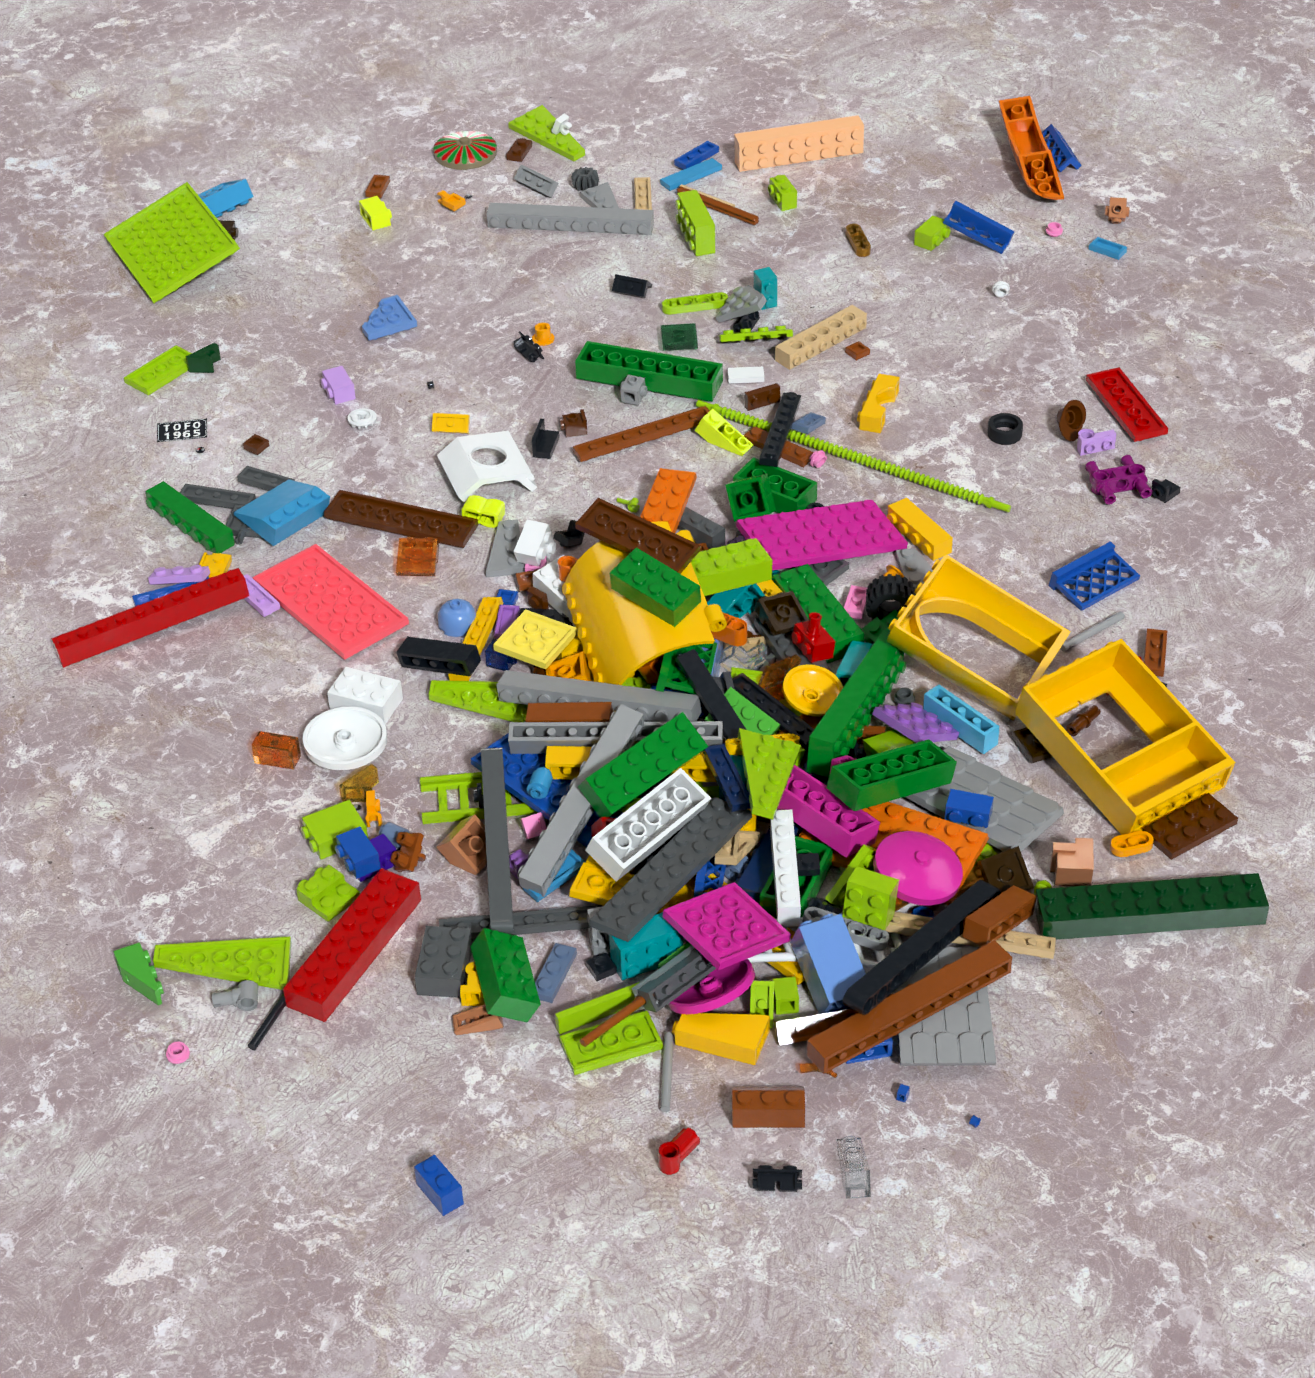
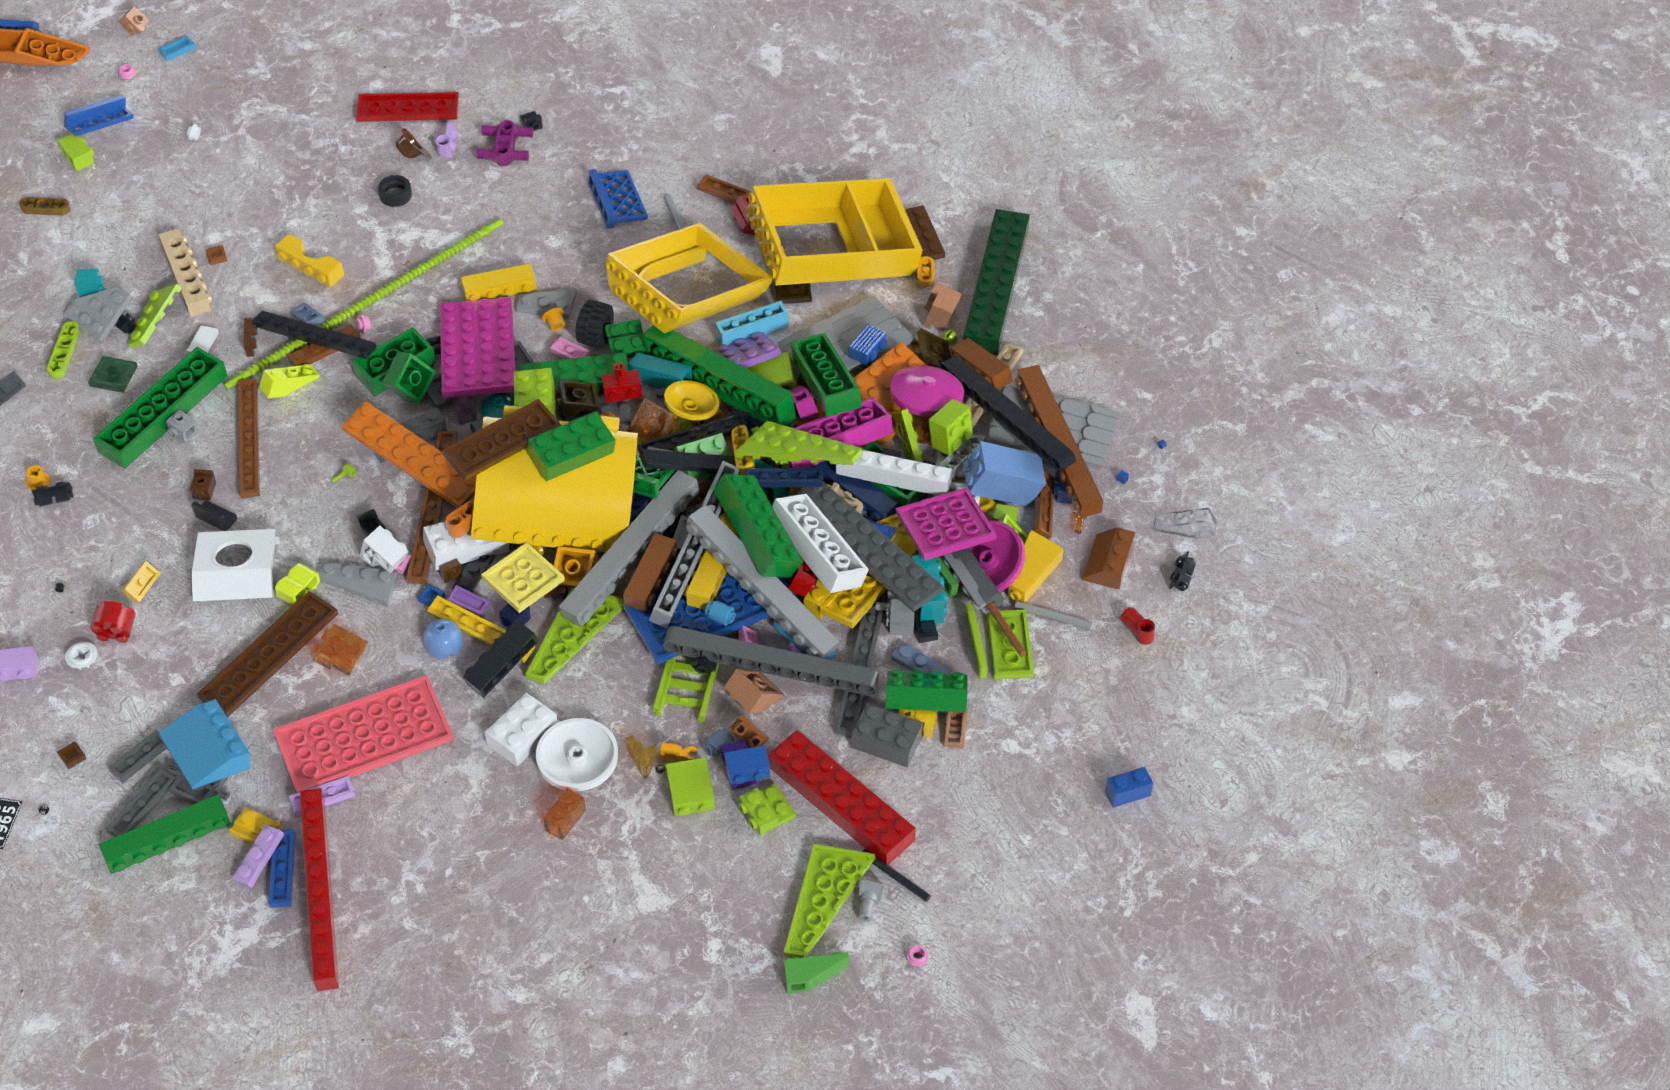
camera: 75 degrees left, 10 degrees up
(395, 418) = (112, 621): none -> red brick

